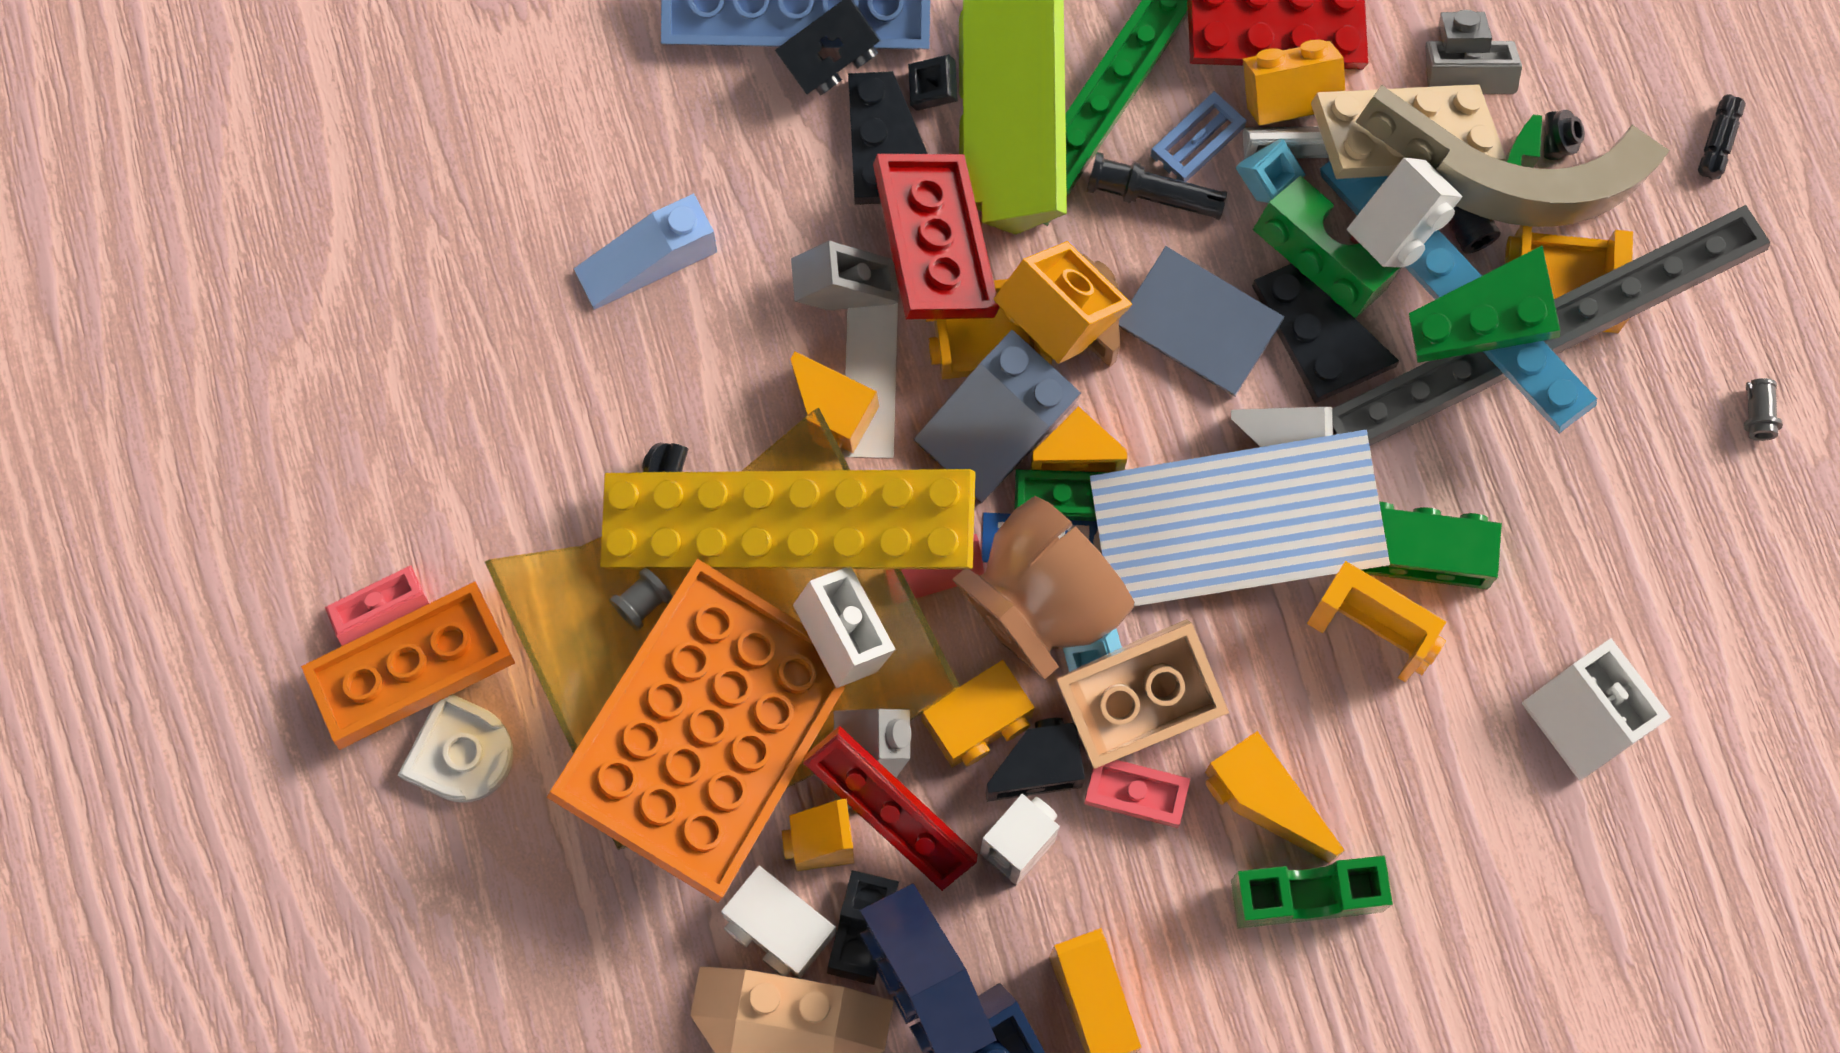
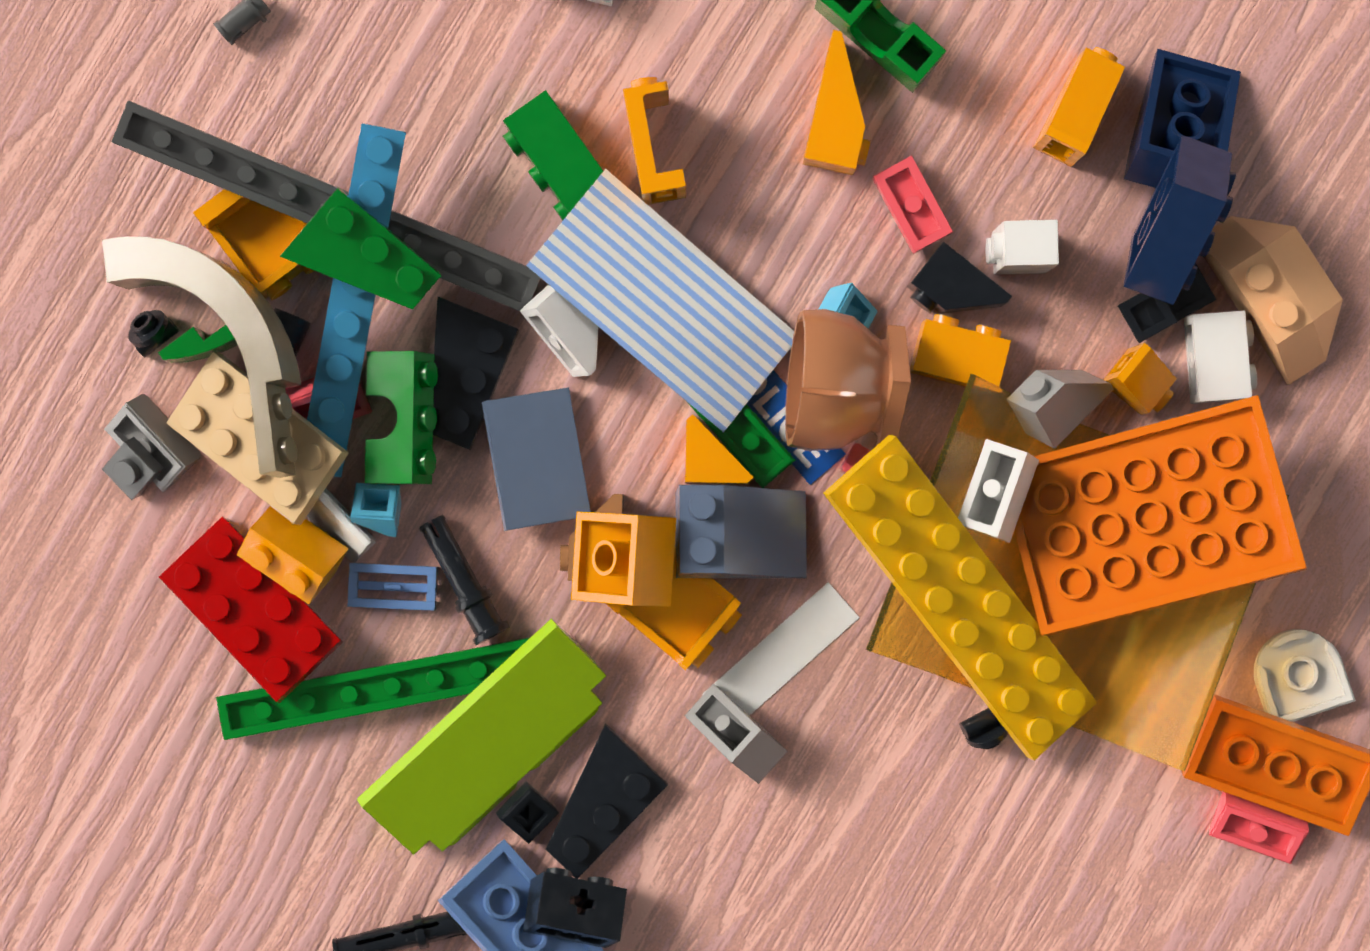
camera: 135 degrees left, 15 degrees up
(641, 599) = (1094, 652): dark grey bush -> none
(648, 252) = (845, 890): light blue slope -> none
(842, 401) = (836, 655): light orange slope -> none
(890, 808) = (1085, 350): red tile -> none
(935, 236) = (654, 694): plate -> none
(1142, 693) = (848, 255): light nougat slope -> none
(1405, 213) = (340, 374): white brick -> none
(1721, 137) = (47, 217): black axle -> none

